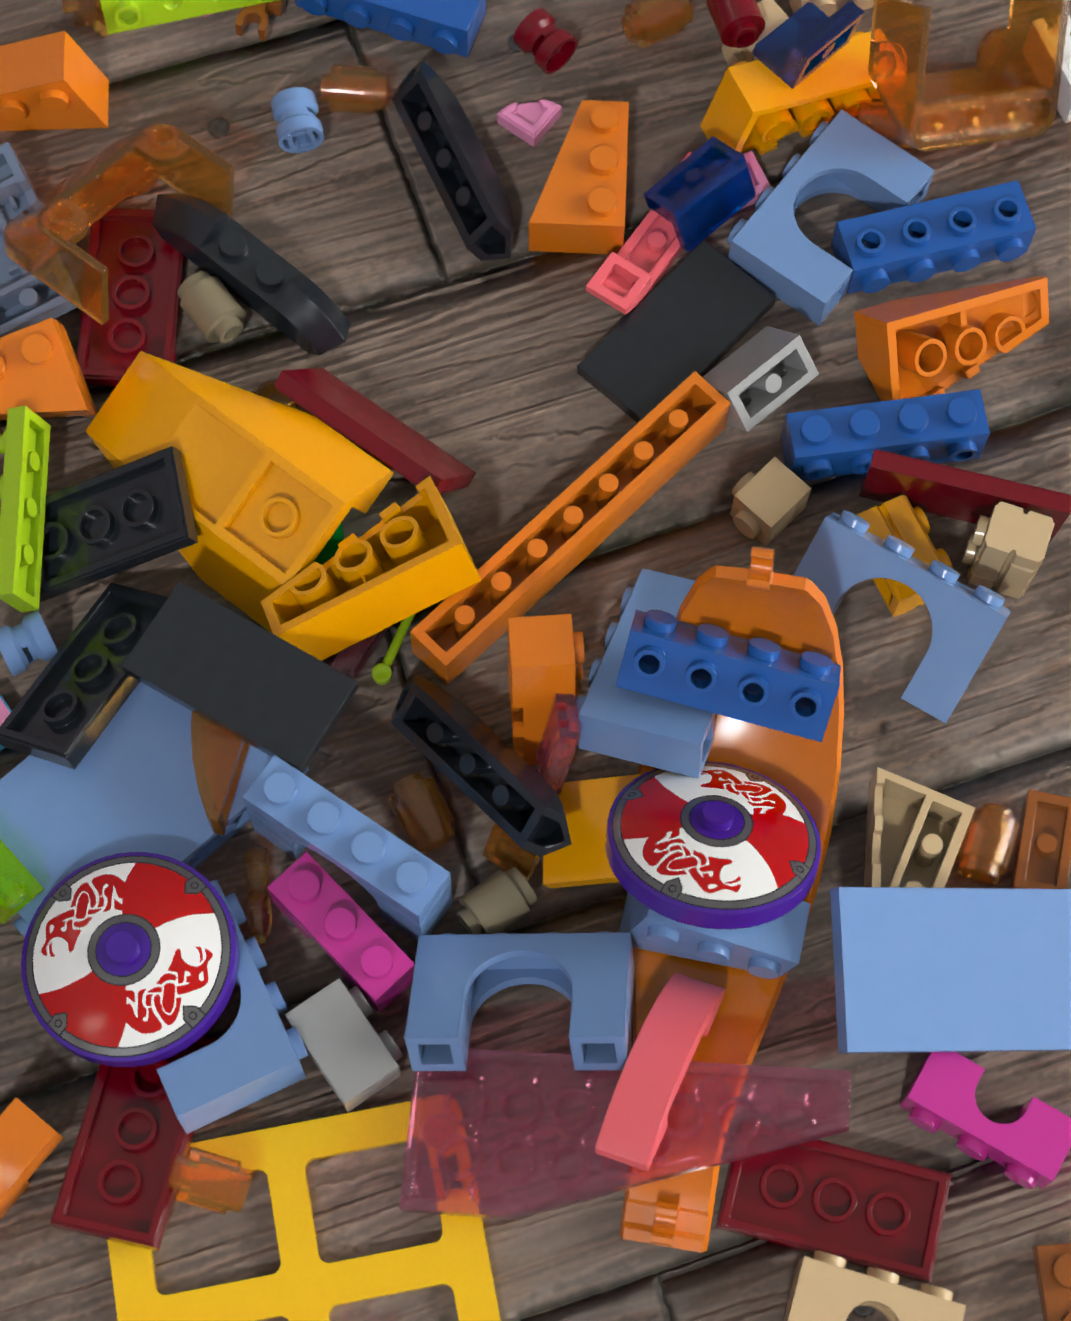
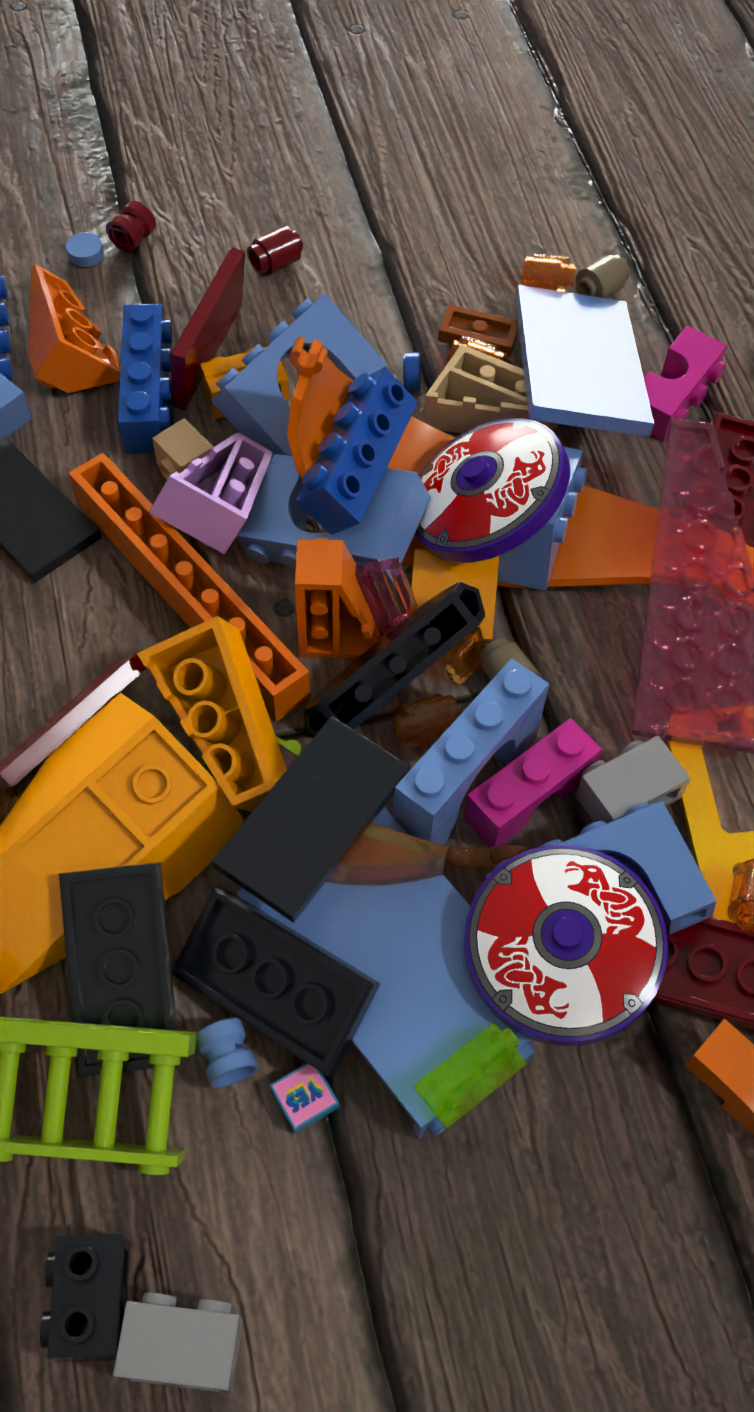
camera: 85 degrees left, 10 degrees down
(464, 970) = (577, 596): medium blue arch -> none
(656, 1069) = (664, 542): coral slope -> none
(679, 532) = (215, 493): none -> lavender wedge
(762, 375) = (71, 438): light grey brick -> none
(952, 761) = (412, 371): none -> blue tile
(1007, 549) = (255, 304): tan brick -> none

